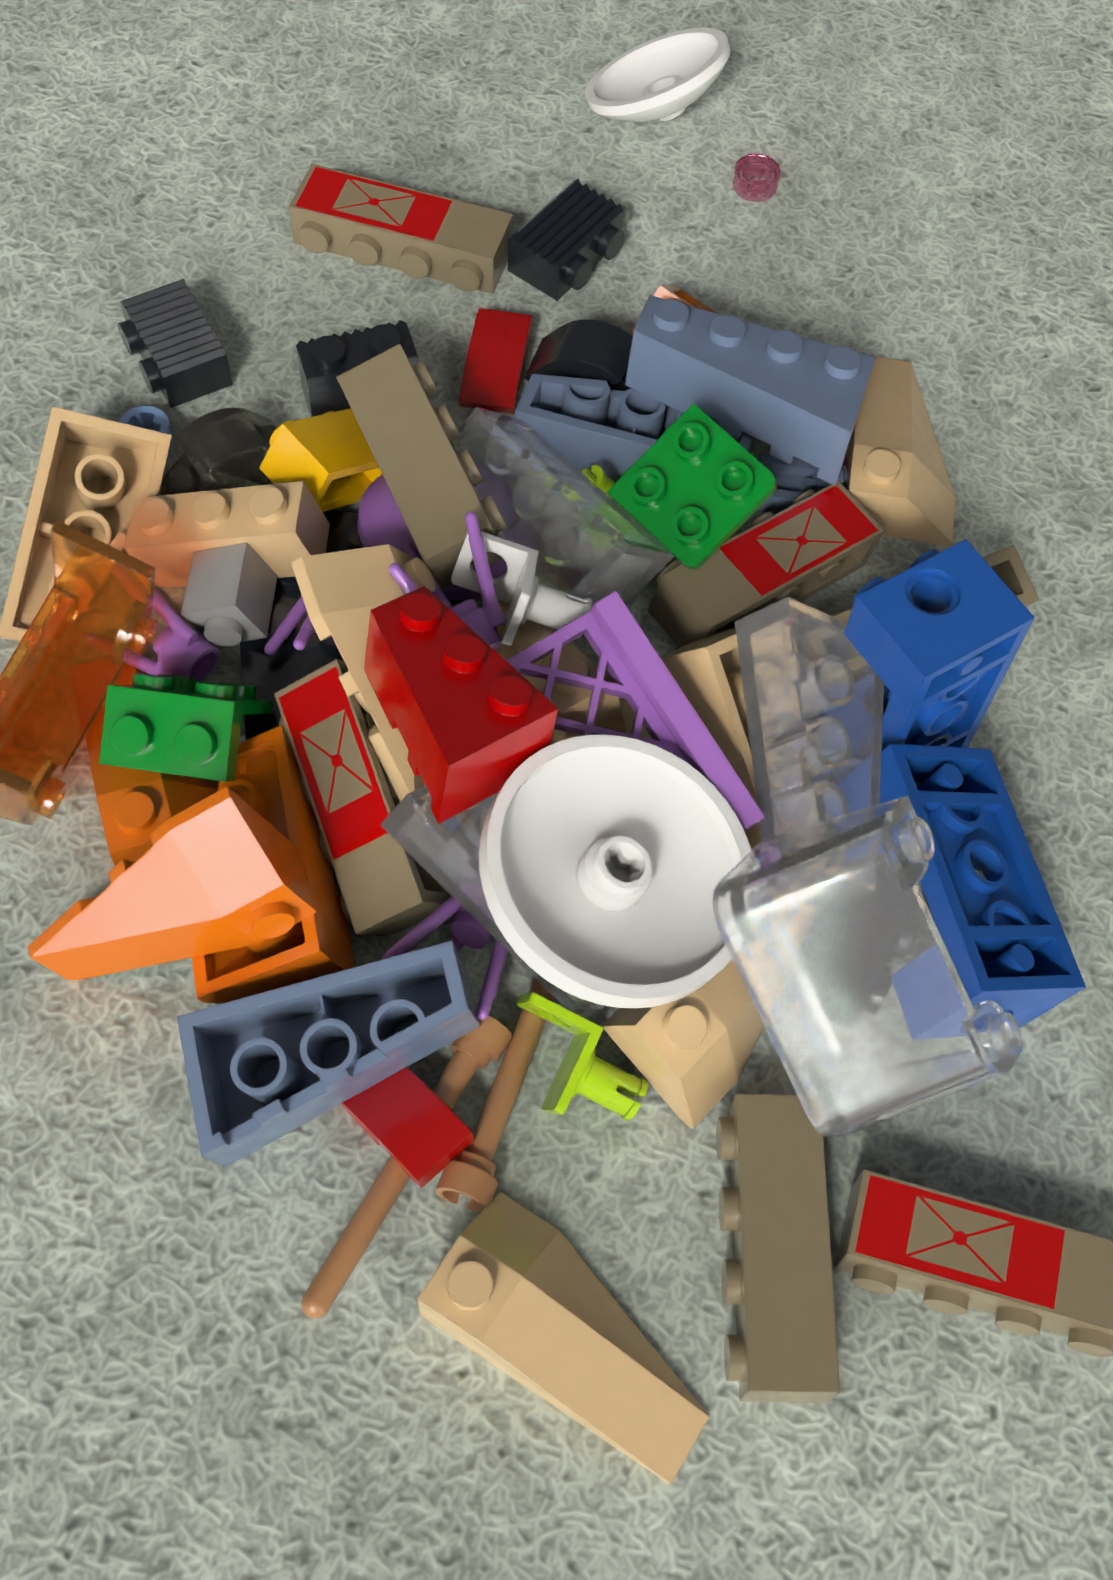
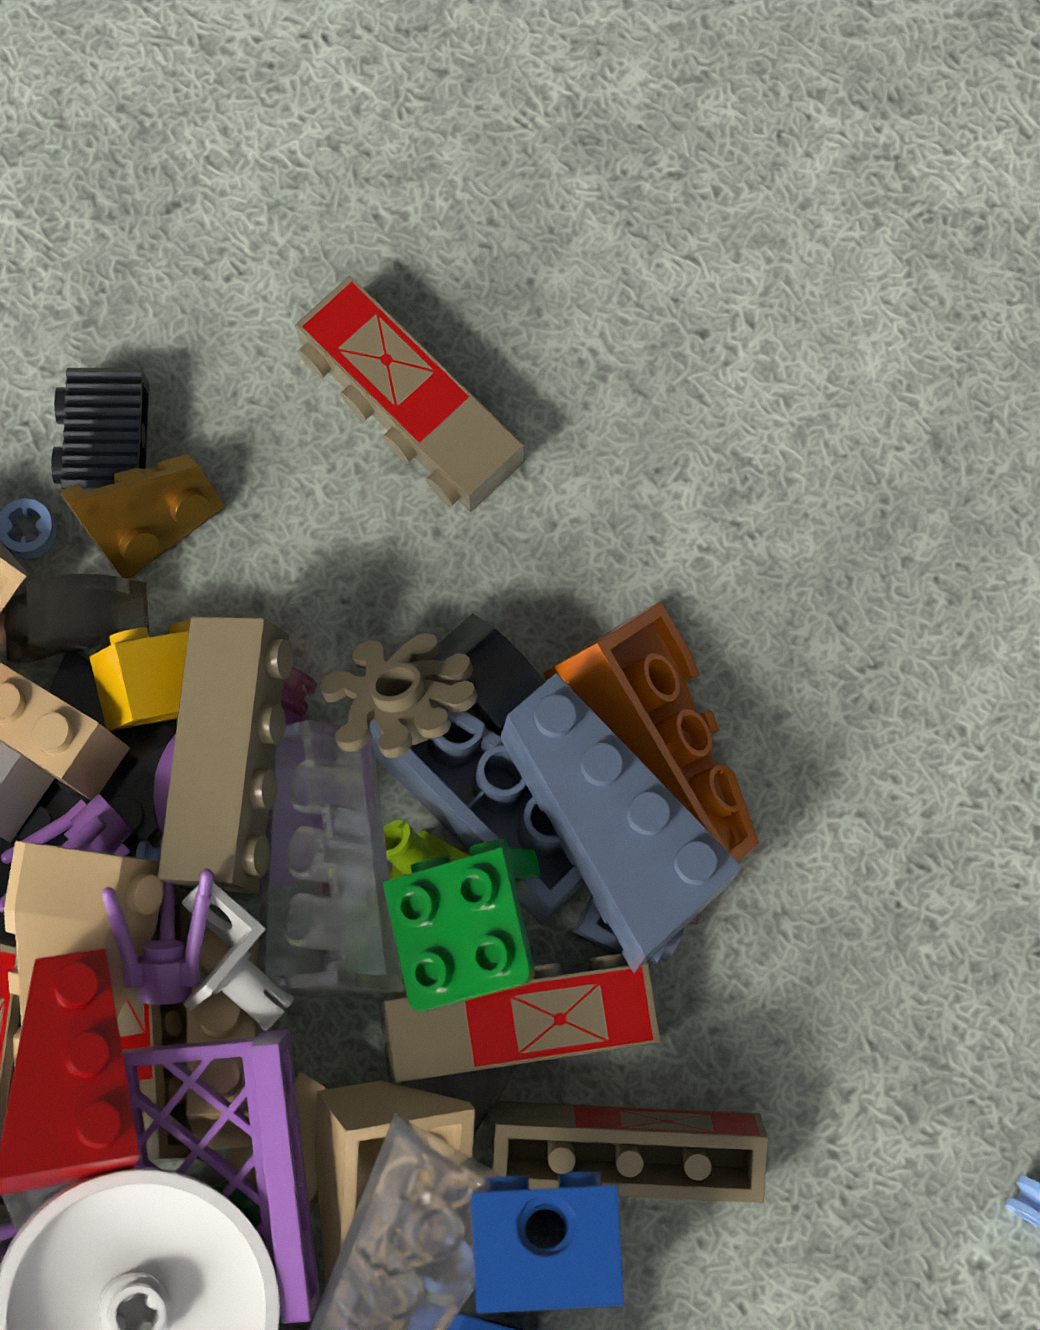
camera: 35 degrees right, 15 degrees up
(239, 366) = (144, 511): none -> pearl gold wing
(333, 355) = (261, 567): black brick -> none
(495, 360) = (421, 599): red slope -> none
(537, 370) = (400, 694): none -> dark tan animal
(566, 240) = (576, 492): black brick -> none
(659, 76) = (803, 313): white dish -> none
(759, 189) = (830, 482): clear pink bush -> none
(897, 460) = (757, 940): tan wedge -> none

